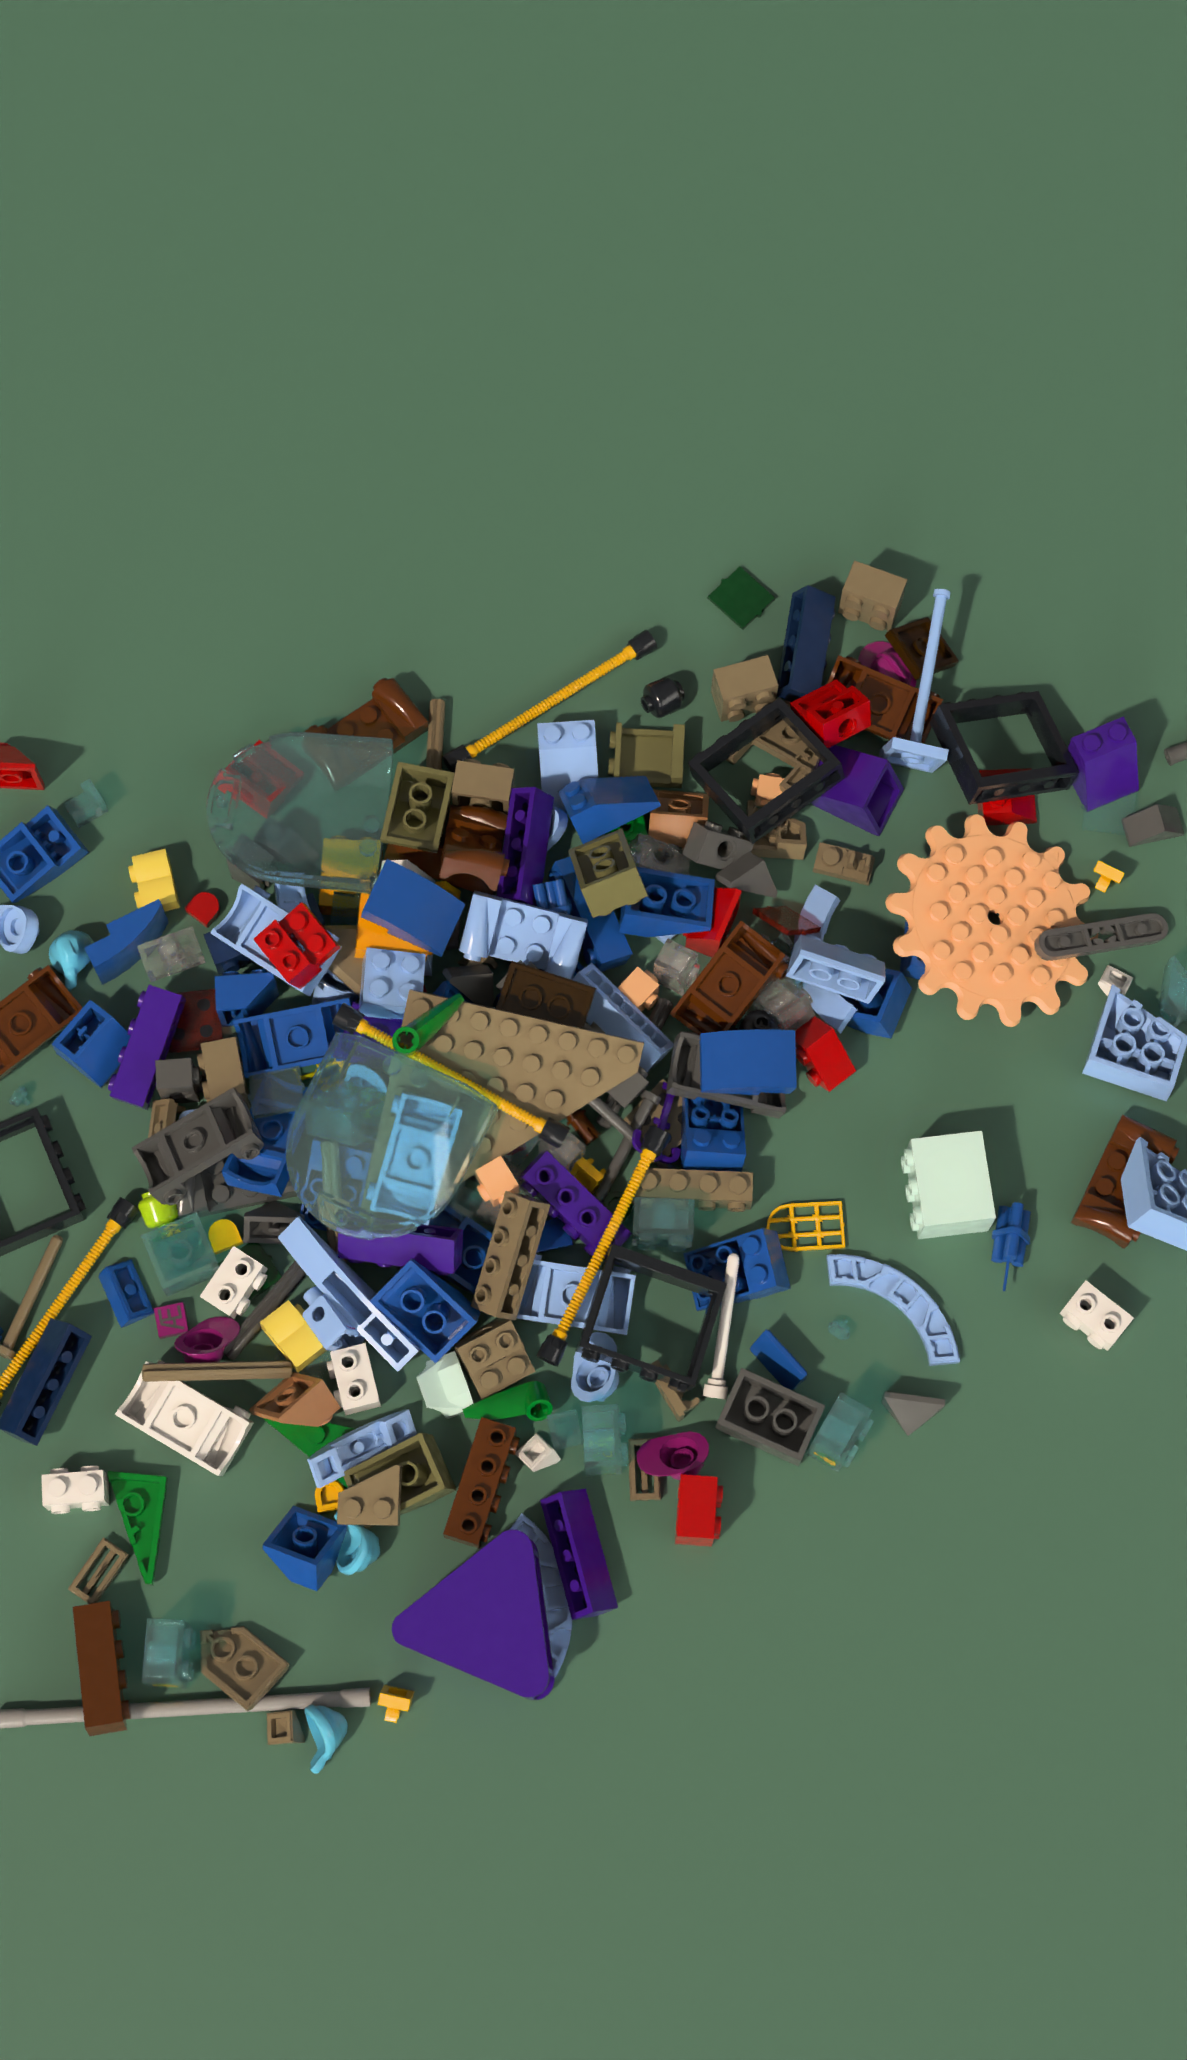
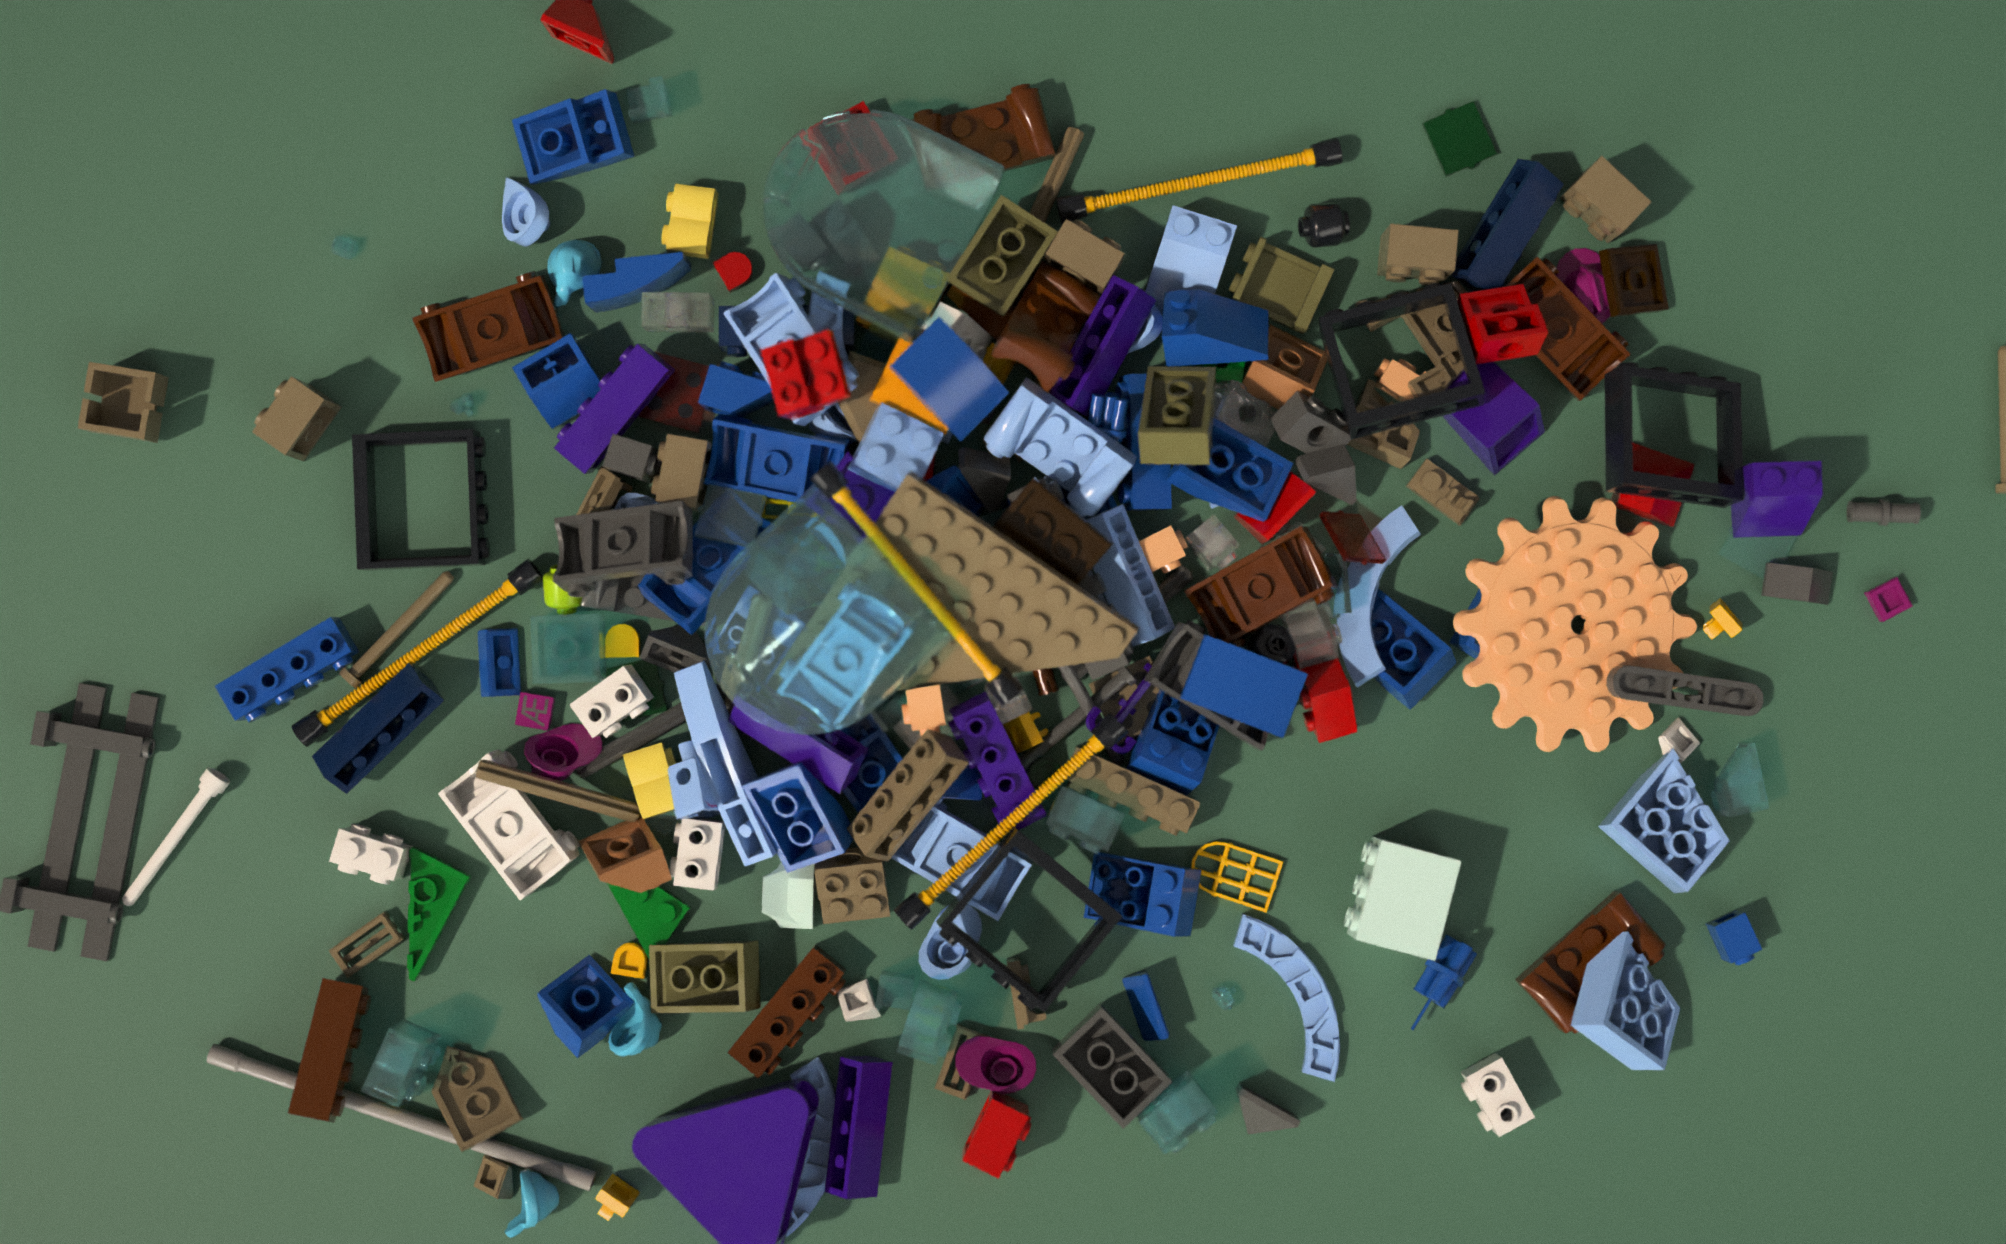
camera: 25 degrees right, 15 degrees up
(360, 1445) = (675, 925): light blue slope -> none
(372, 1500) = (667, 992): dark tan wing -> none
(427, 1025) = (908, 523): green piece -> none
(524, 1399) = (853, 943): green piece -> none
(716, 1385) = (1069, 1009): white piece -> none
(836, 968) = (1382, 620): light blue slope -> none
(913, 752) = (1572, 401): light blue tile -> none

